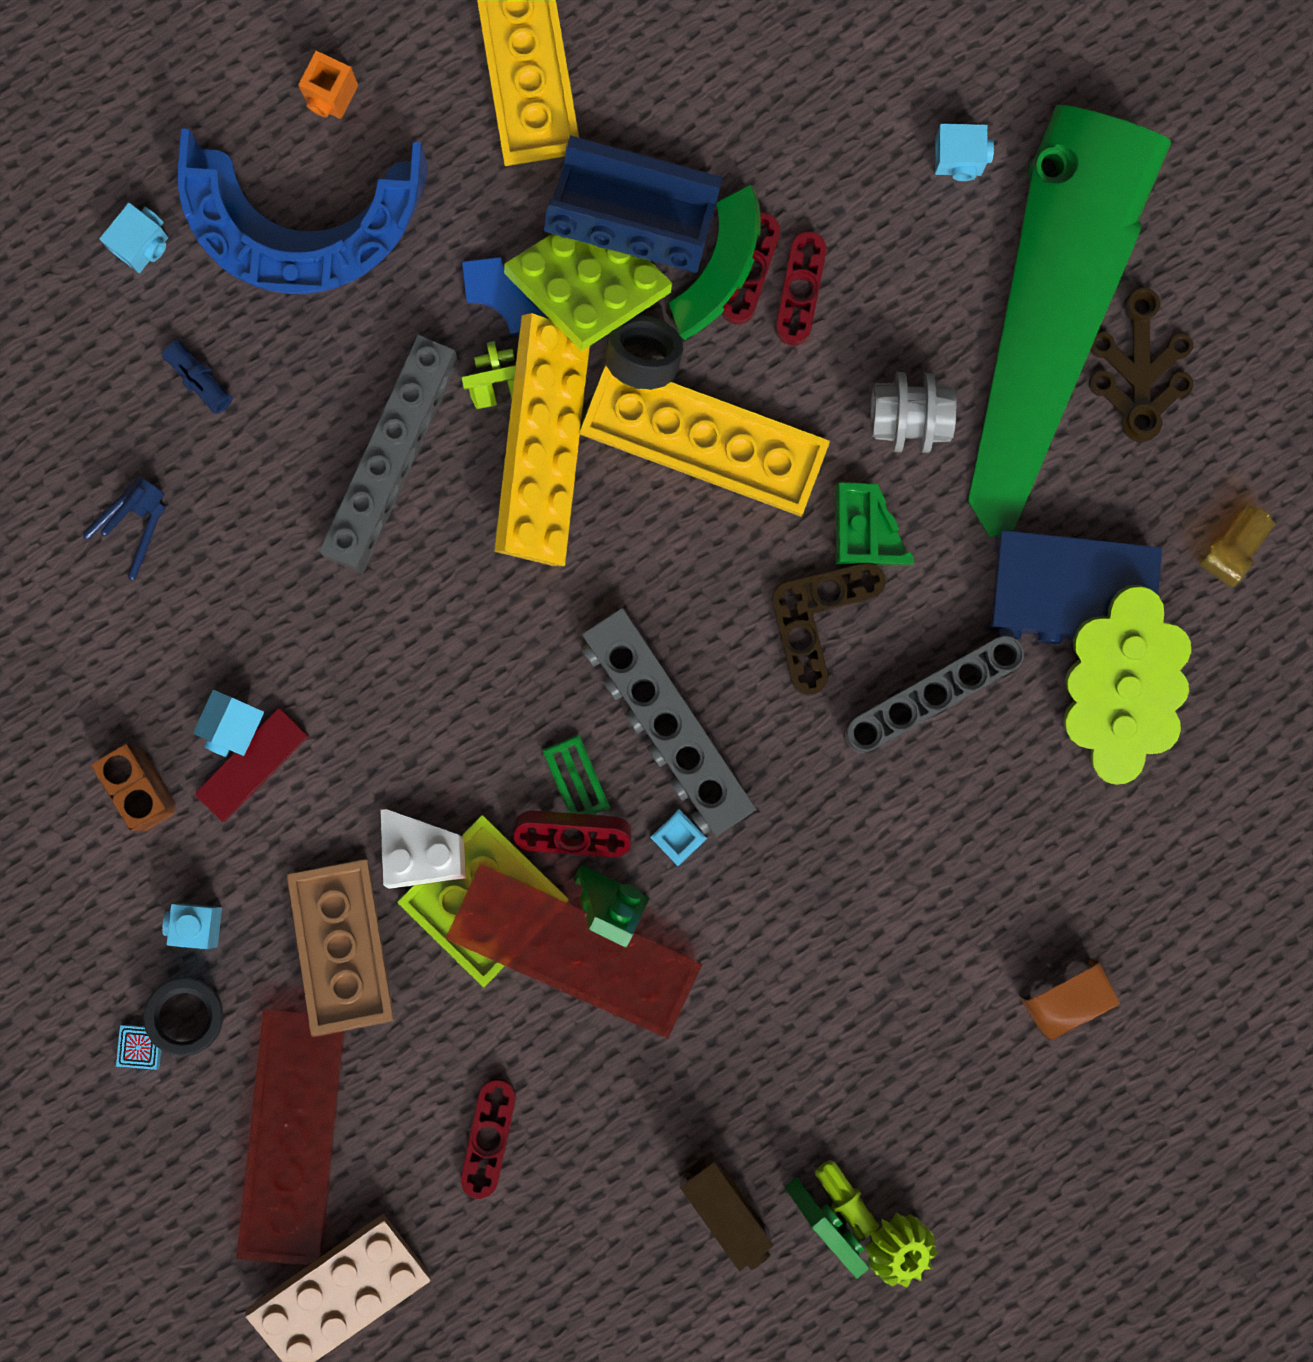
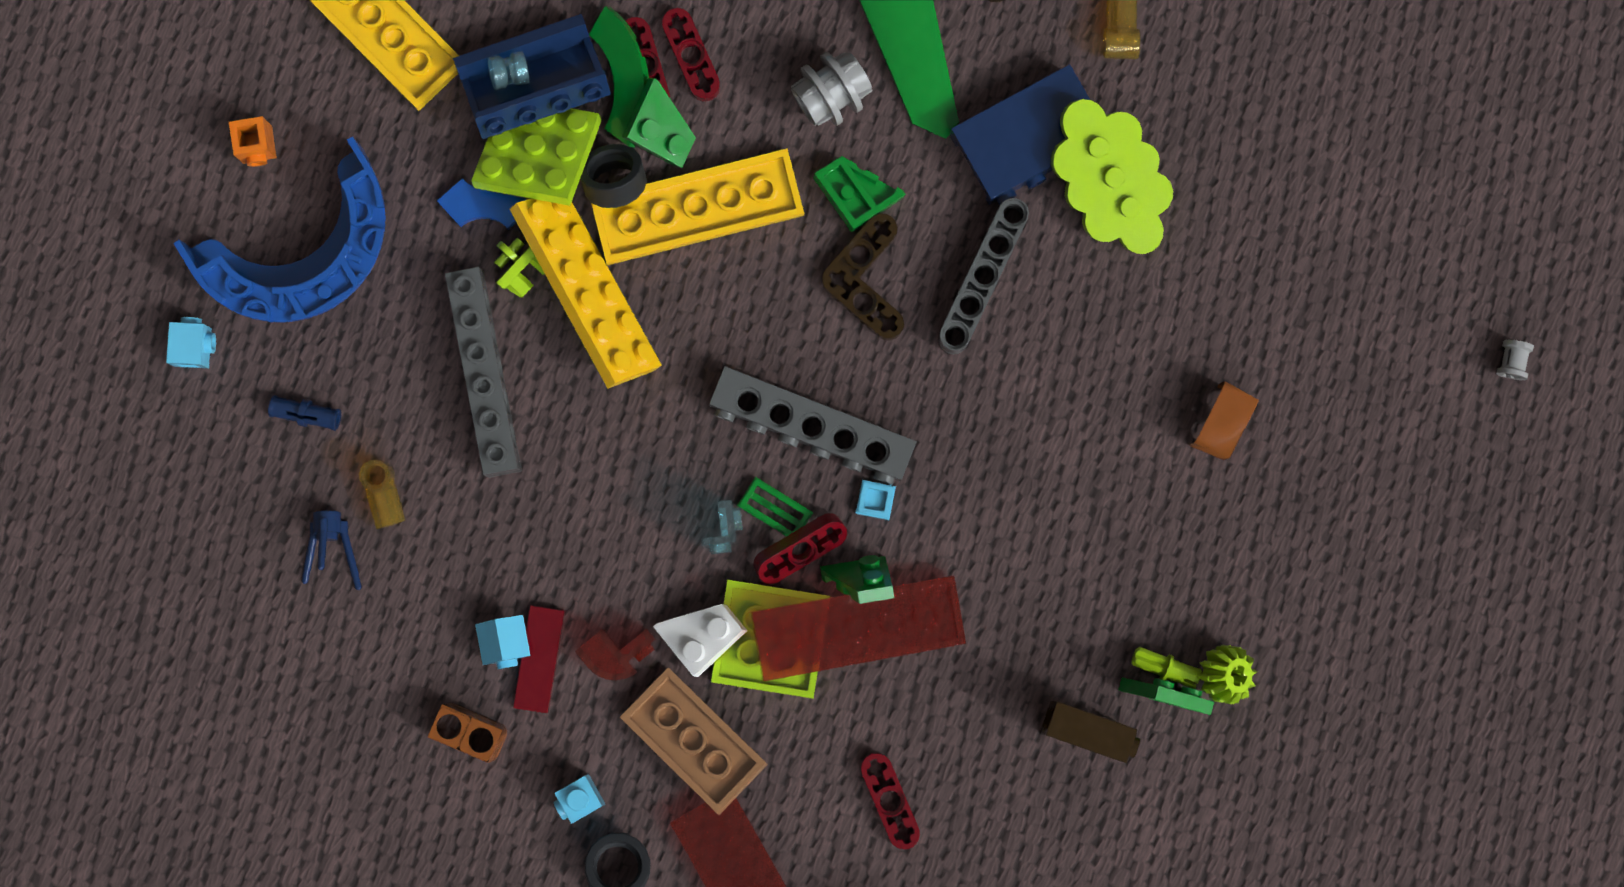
camera: 35 degrees left, 0 degrees up
(213, 508) = (382, 498): none -> clear yellow piece
(315, 812) = (610, 661): none -> clear red brick
(522, 760) = (730, 522): none -> clear light blue bracket
(623, 184) = (508, 70): none -> clear light blue wheel
(722, 335) = (659, 126): none -> green wing

